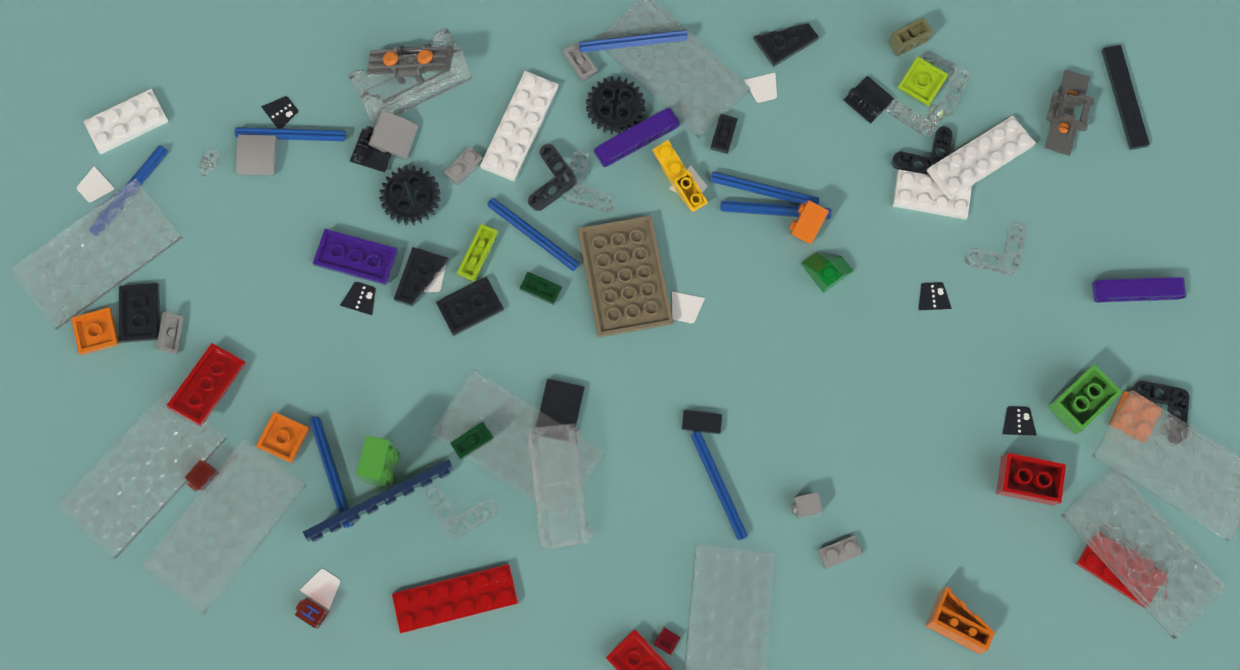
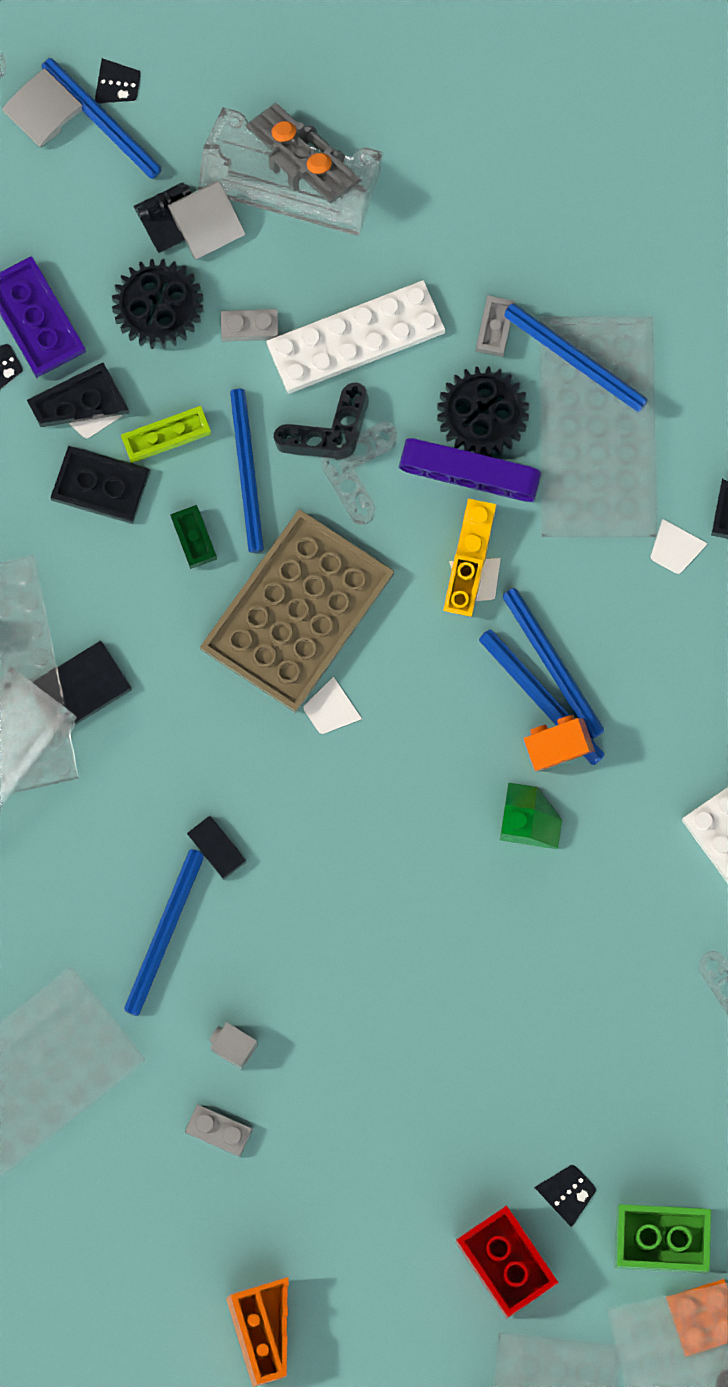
camera: 50 degrees right, 0 degrees up
(724, 133) = (572, 557): black plate -> none
(933, 297) = (619, 964): black sticker -> none

